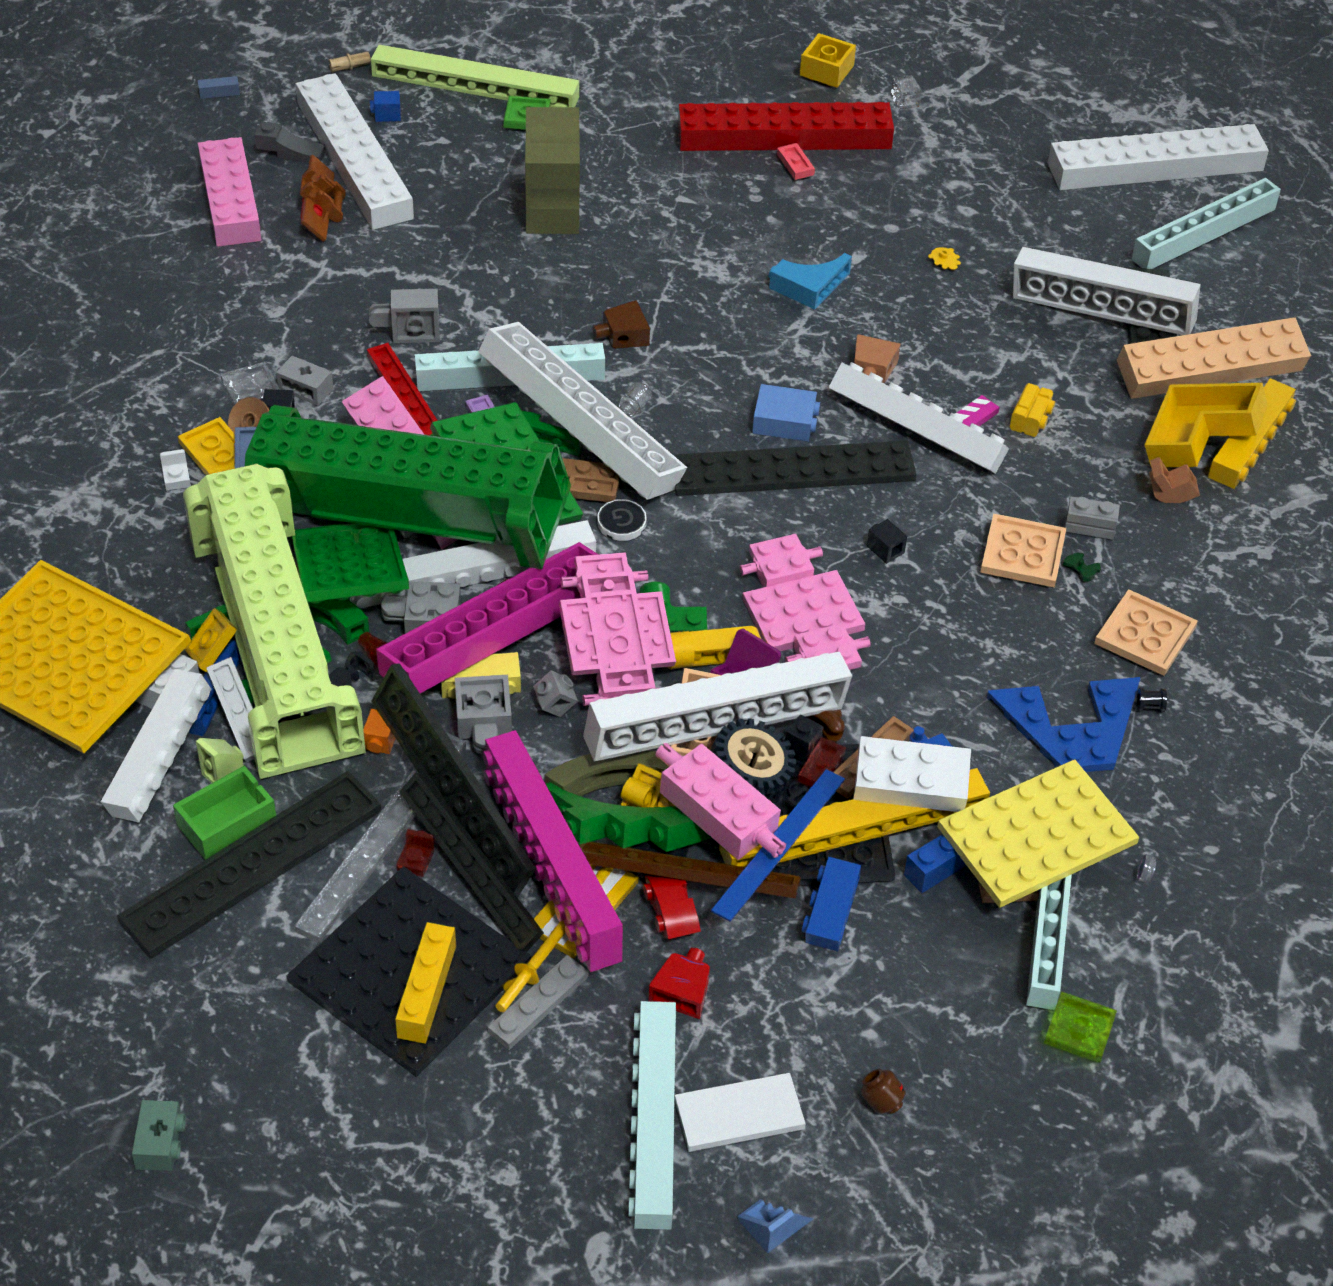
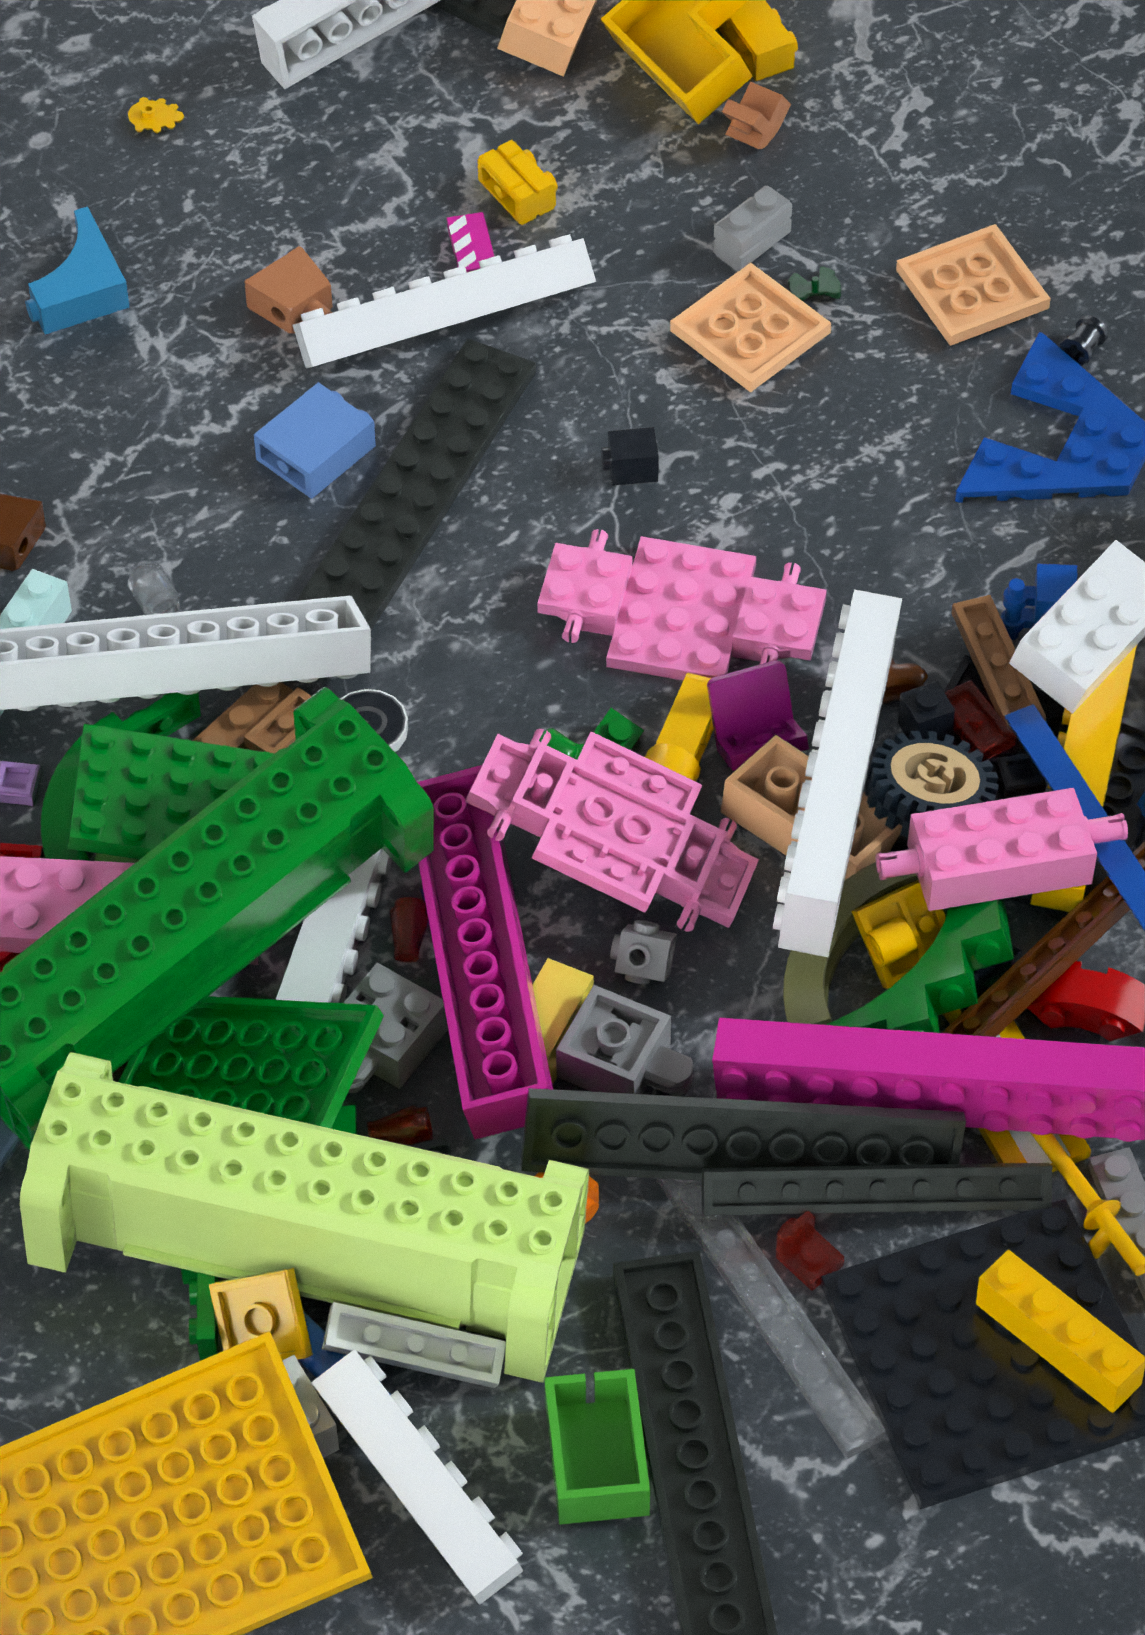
camera: 55 degrees left, 5 degrees up
(218, 758) = (493, 1414): yellowish green slope -> none

